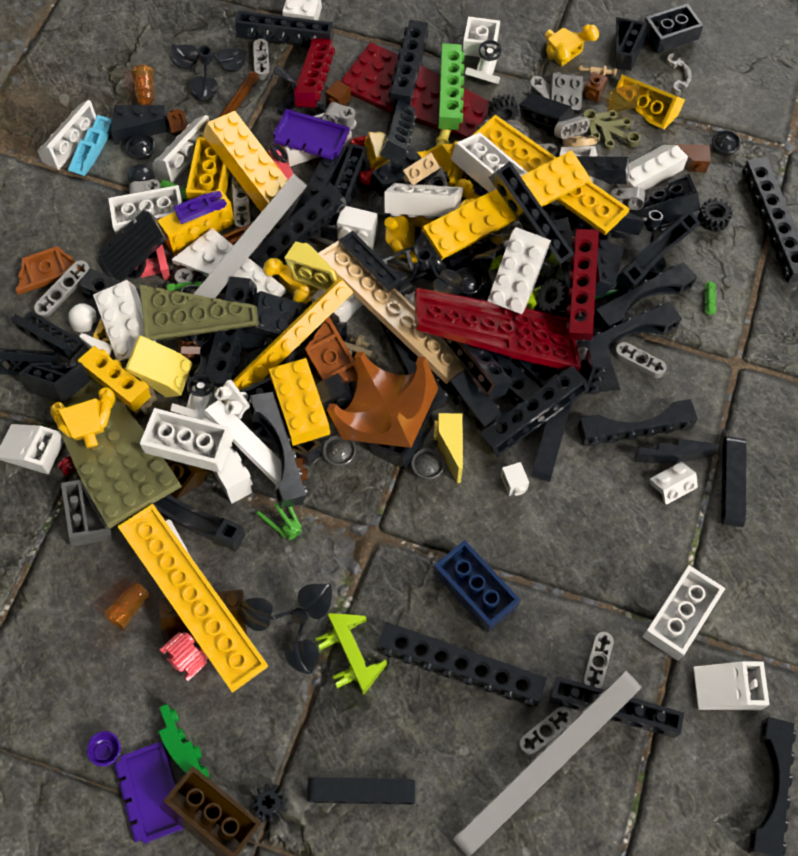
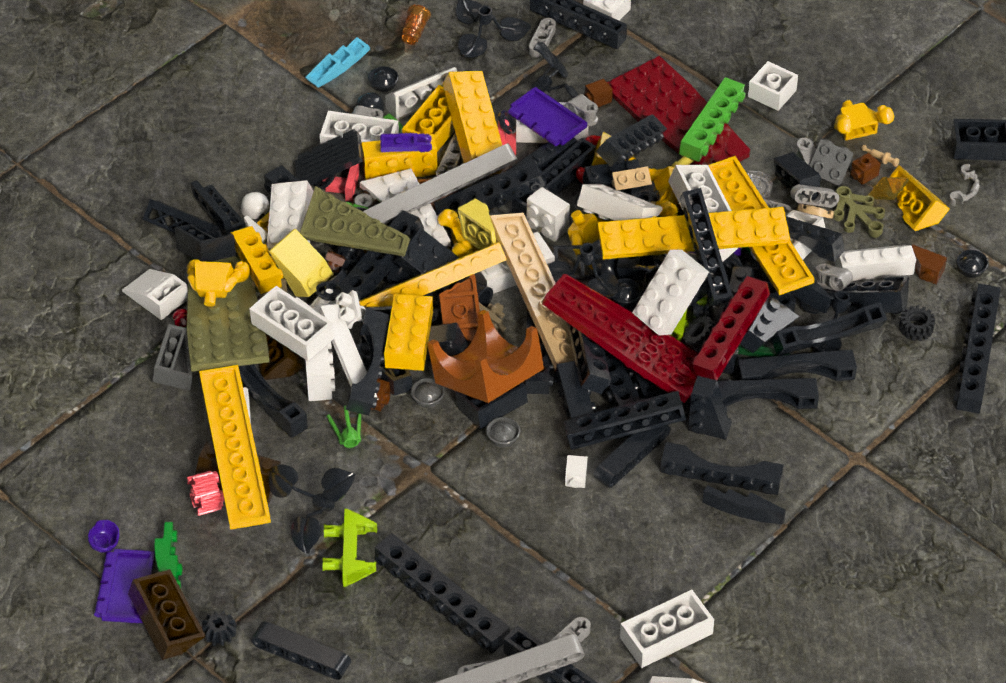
camera: 25 degrees right, 15 degrees down
(43, 269) = (242, 153): dark orange wing -> none
(59, 286) = (247, 172): light grey beam -> none
(67, 137) = (314, 50): white slope -> none
(126, 606) = (175, 441): clear orange plant -> none
(138, 119) = (393, 54): black wedge -> none
(177, 121) = (429, 66): reddish brown bracket -> none
(240, 94) = (506, 62): reddish brown axle -> none
(314, 73) = (582, 64): dark red brick -> none
(370, 262) = (537, 241): black fence -> none
(409, 62) = (684, 85): black brick -> none
(450, 442) = (535, 417): light yellow slope -> none
(476, 586) = (489, 538): dark blue brick -> none
(487, 62) = (764, 111): white piece -> none
(505, 102) = (757, 151): black tyre -> none
(629, 41) = (925, 138): black wedge -> none
(639, 353) = (758, 412): light grey beam -> none
(675, 482) = (728, 530): white bracket -> none
(710, 298) = (864, 393): bright green axle -> none
(733, 482) = (785, 549): black beam -> none

